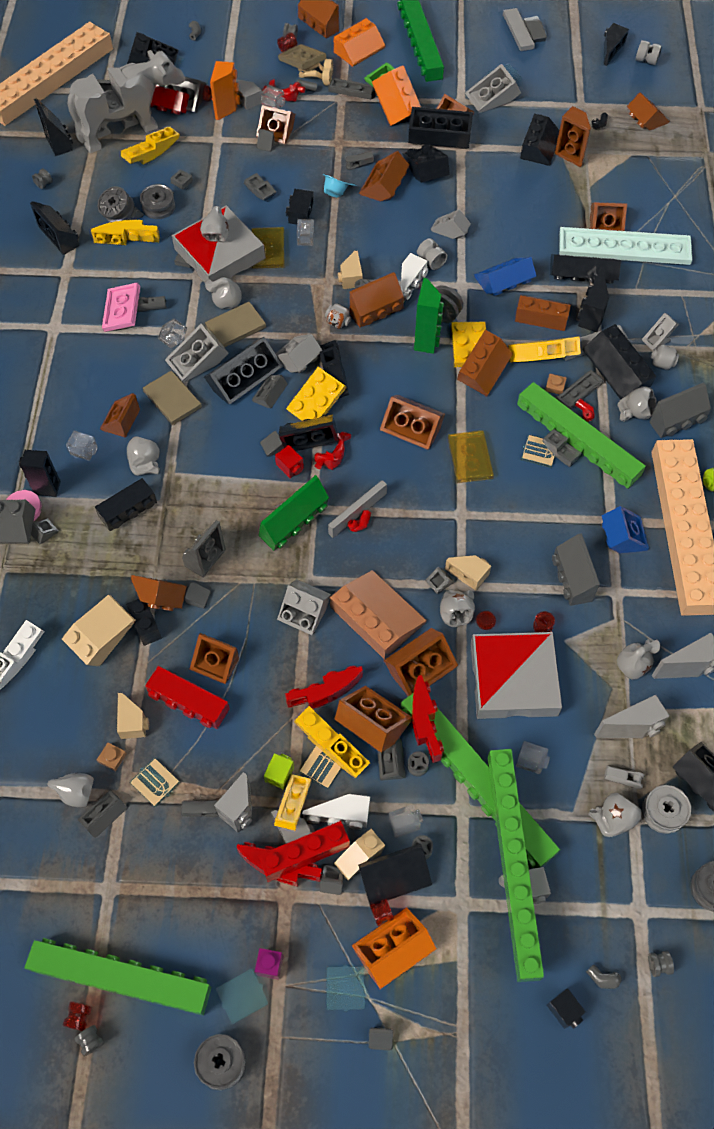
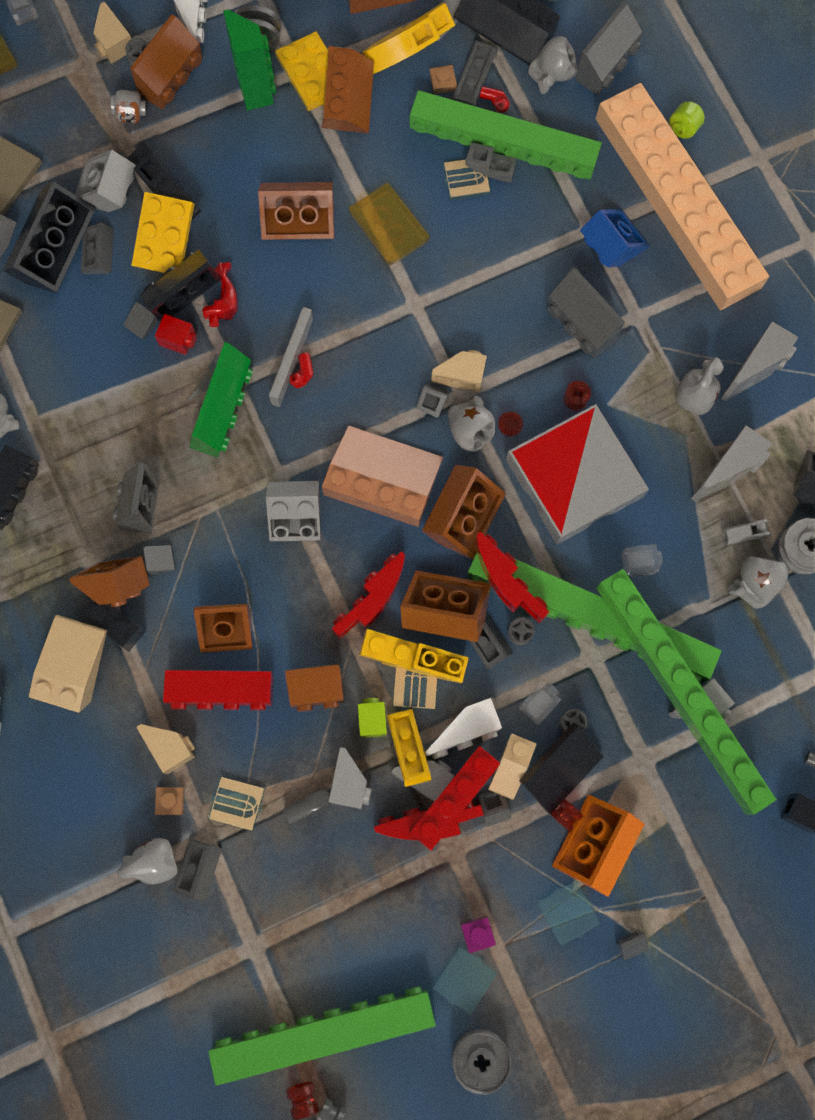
camera: 30 degrees left, 15 degrees up
(251, 727) = (315, 687): none -> dark orange slope

